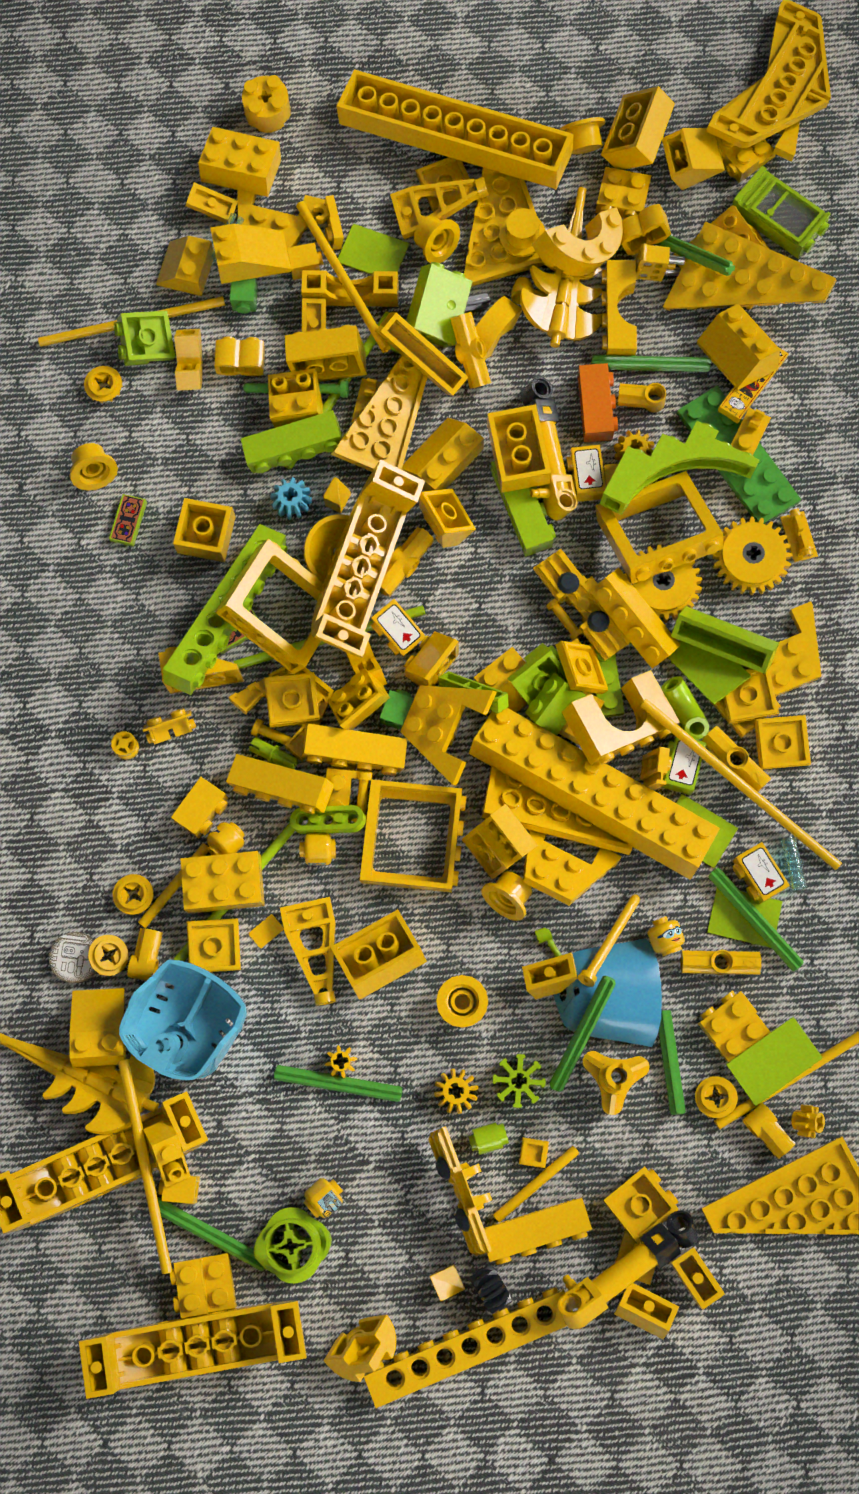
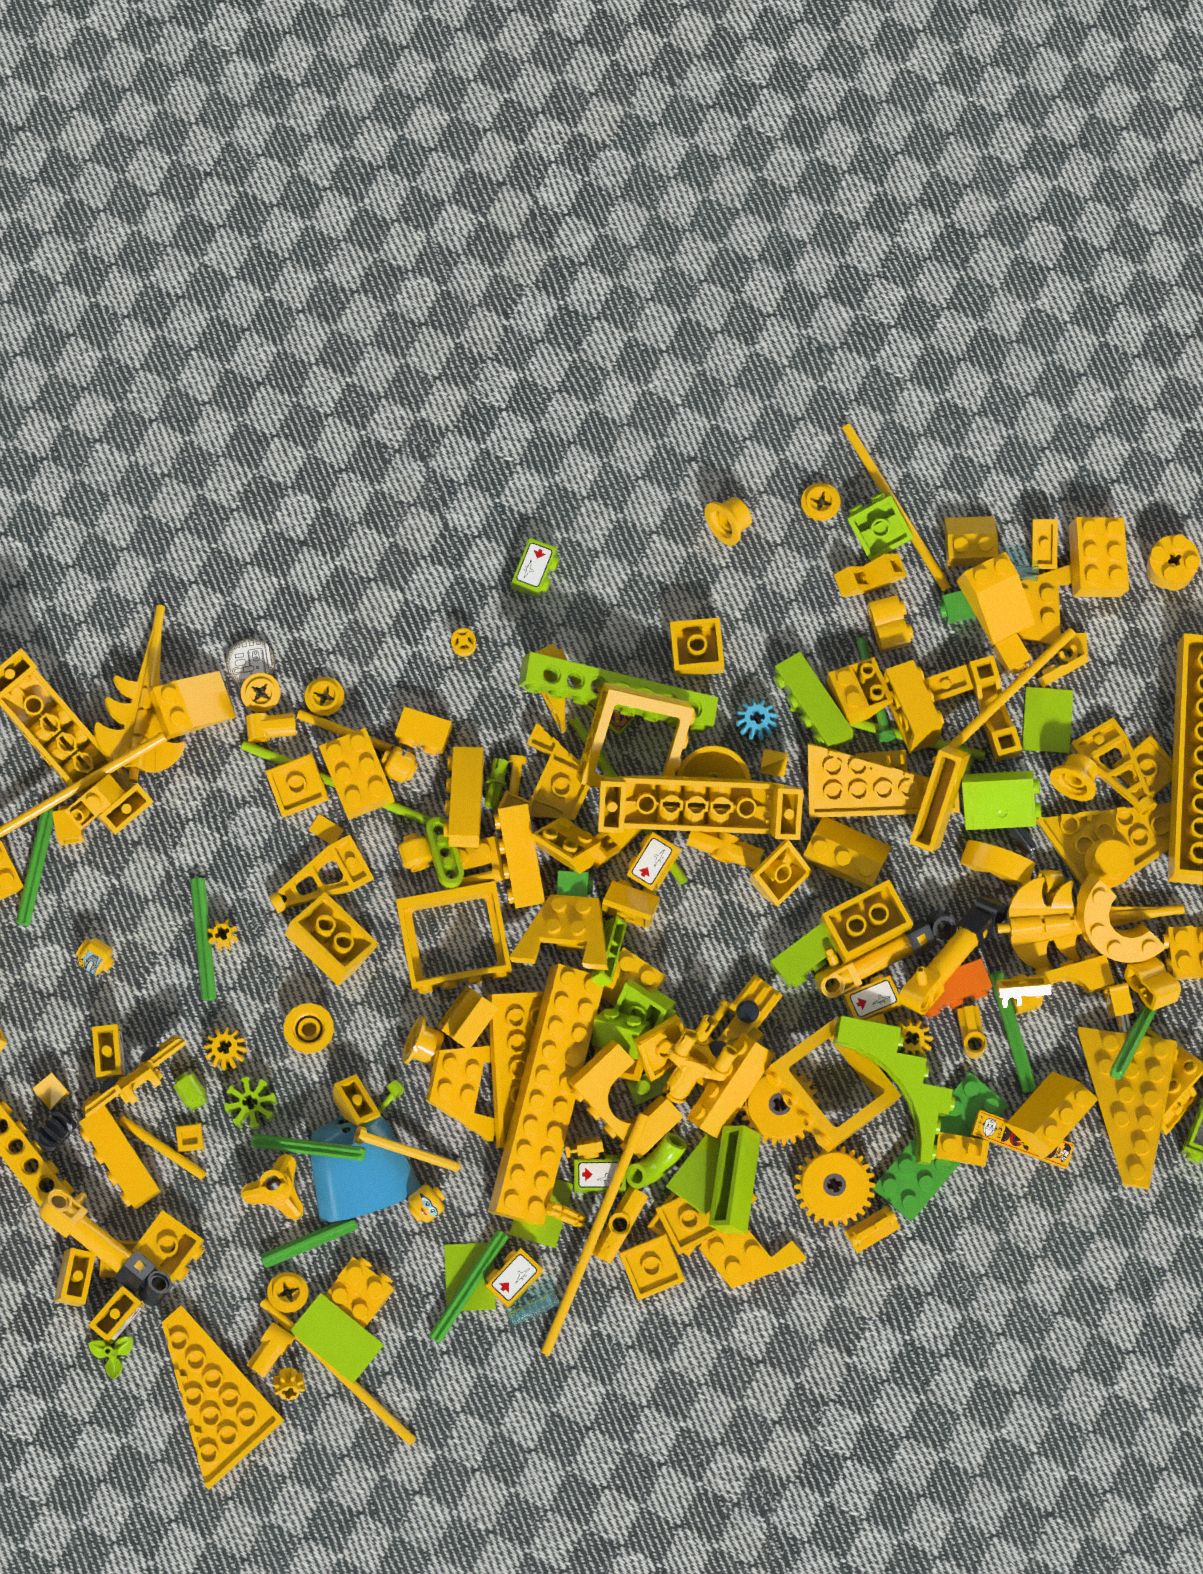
camera: 70 degrees right, 0 degrees up
(76, 657) = (535, 568): none -> brick
(128, 520) = (688, 571): tile -> none
(160, 727) = (490, 668): yellow hinge -> none
(193, 1010) = (231, 786): medium azure piece -> none
(266, 1250) = (34, 920): lime piece -> none
(292, 699) = (551, 783): yellow tile -> none
(426, 1211) = (108, 1052): none -> yellow brick
(470, 350) = (963, 846): yellow piece -> none
(556, 370) = (972, 932): none -> yellow piece
(607, 638) = (696, 1060): none -> yellow wheel
(618, 334) = (1029, 986): none -> plate
(713, 806) = (565, 1214): none -> yellow axle
(737, 962) = (412, 1246): yellow piece -> none
(742, 1295) = (101, 1349): none -> lime plant

